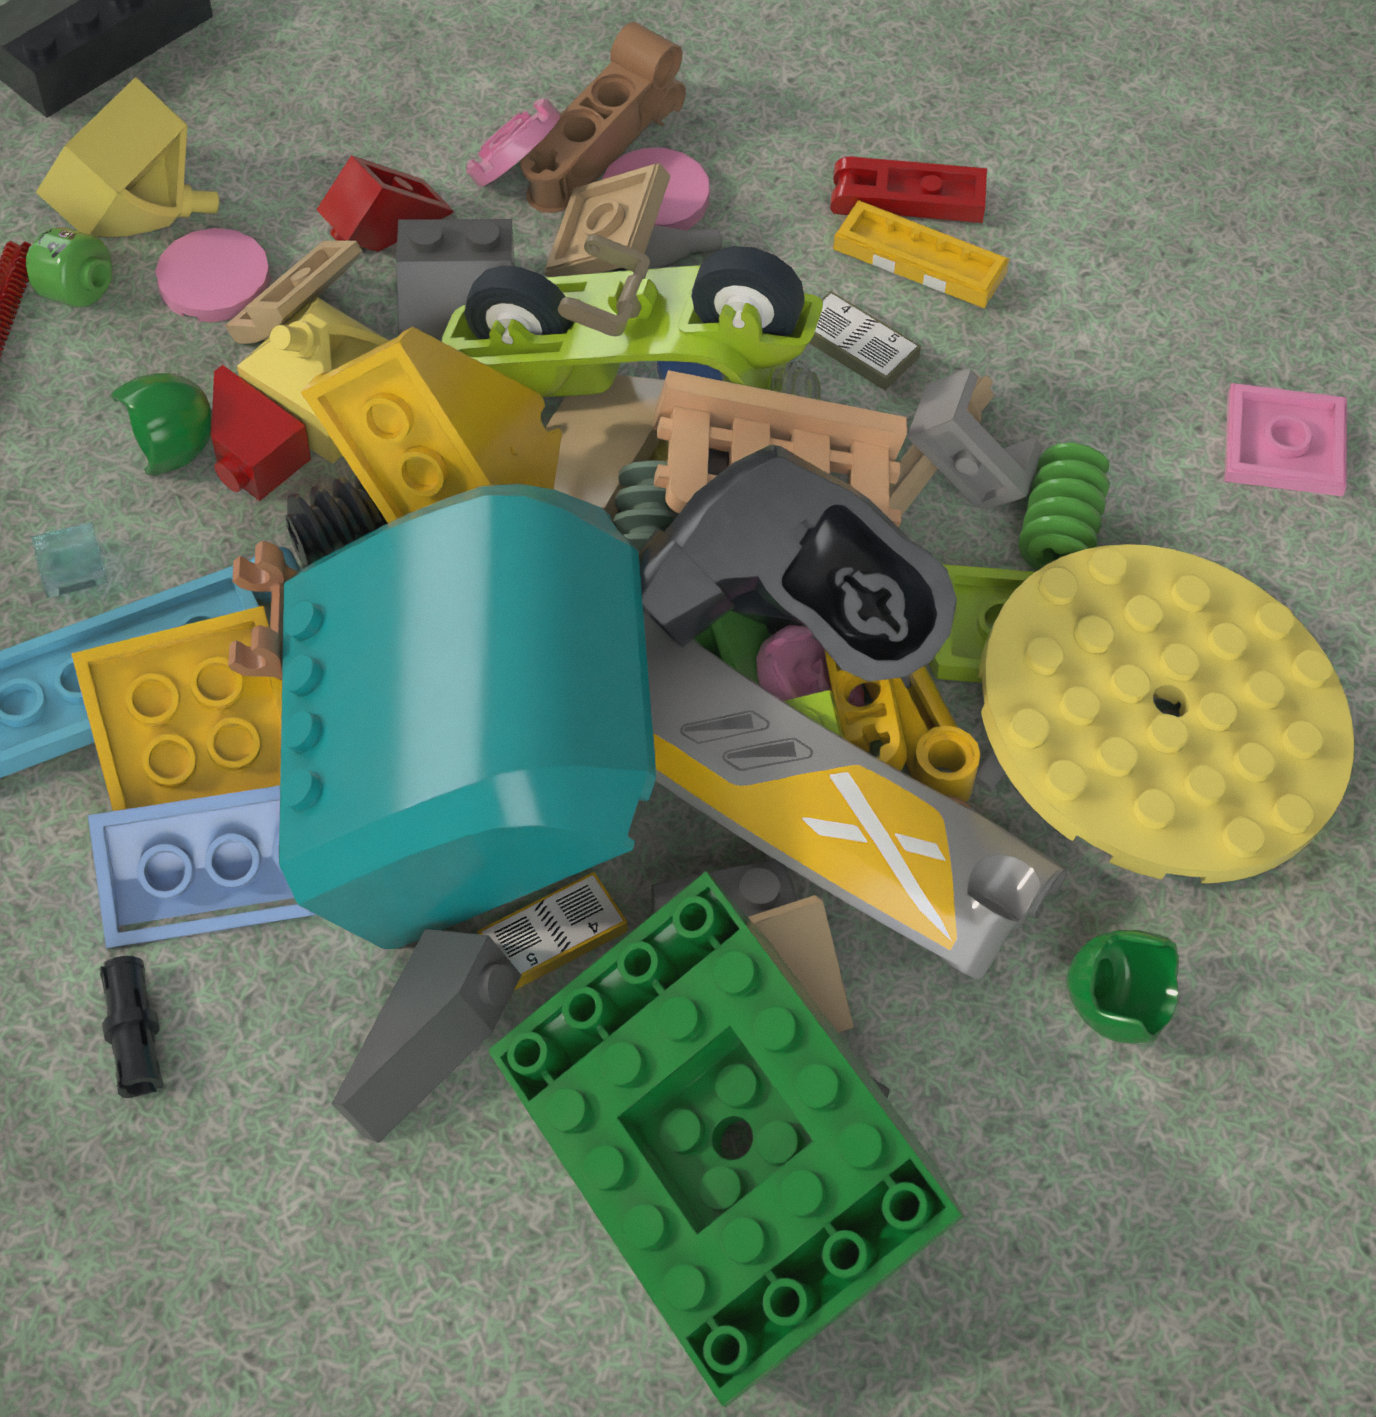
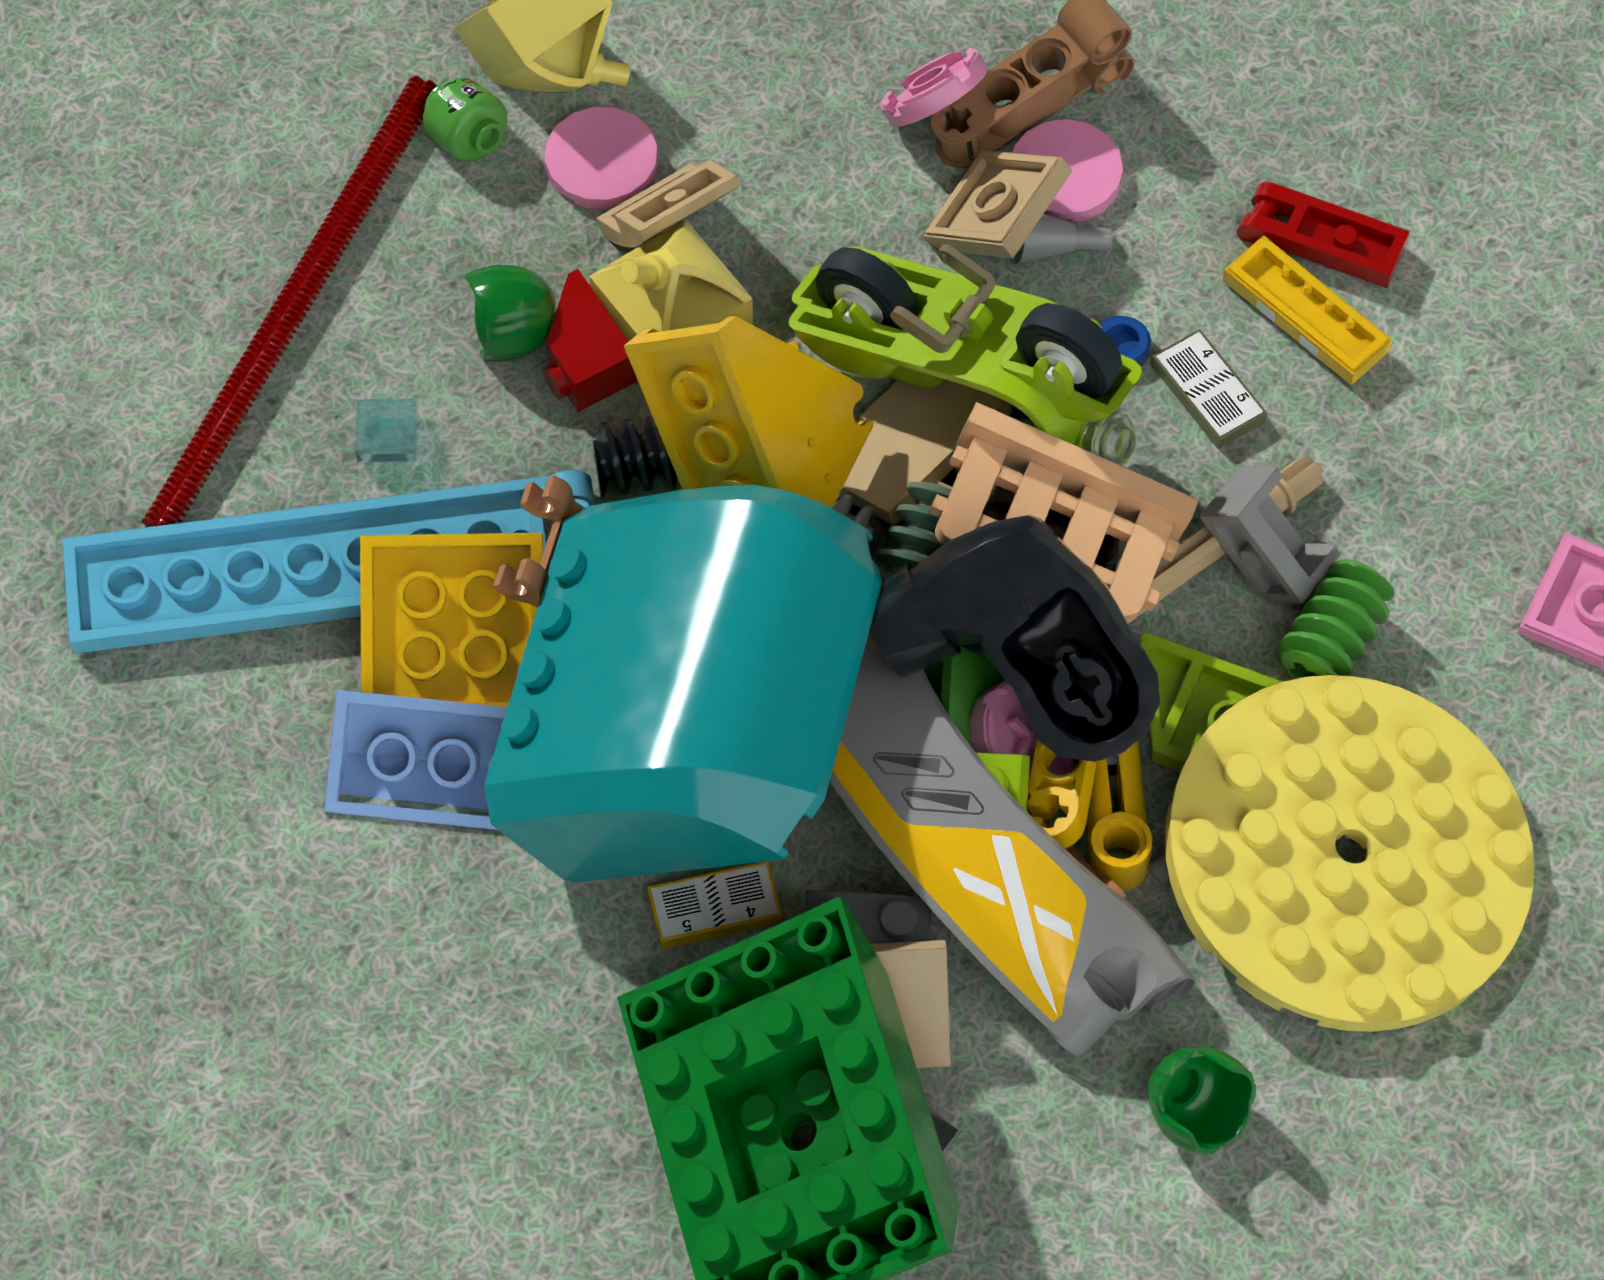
camera: 20 degrees right, 5 degrees up
(130, 1026) = (326, 888): black pin -> none
(372, 198) = (784, 124): red slope -> none
(427, 1028) = (577, 960): dark grey slope -> none
(441, 262) = (824, 210): dark grey slope -> none

